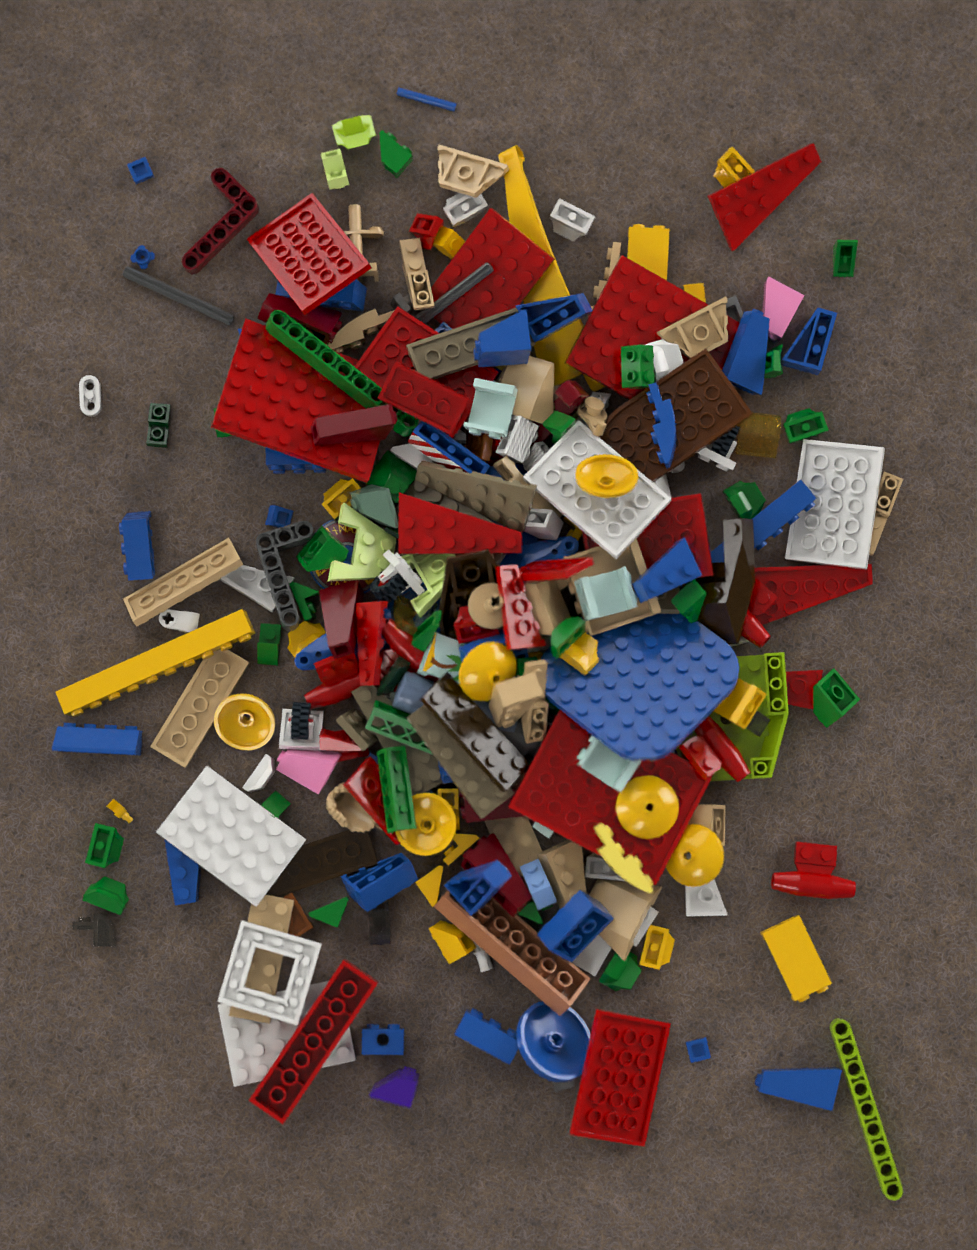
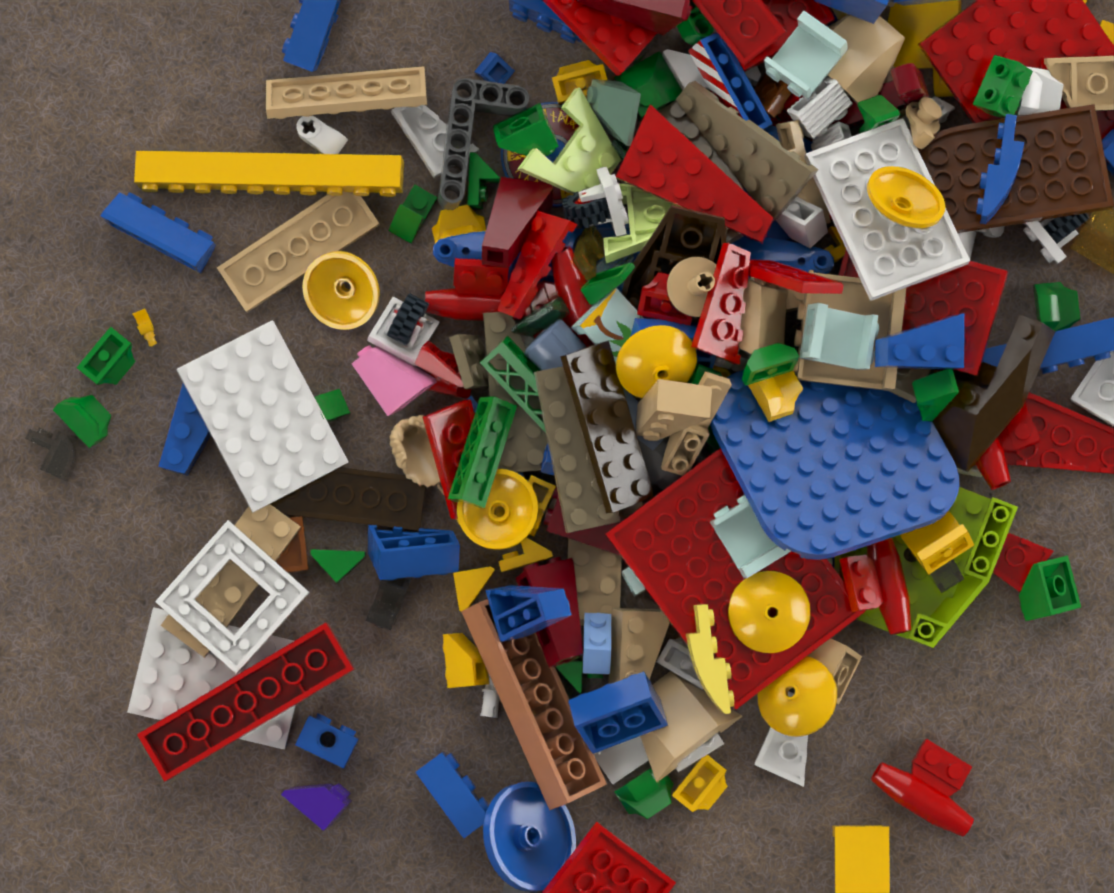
camera: 20 degrees right, 0 degrees up
(261, 775) = (330, 362): white slope -> none

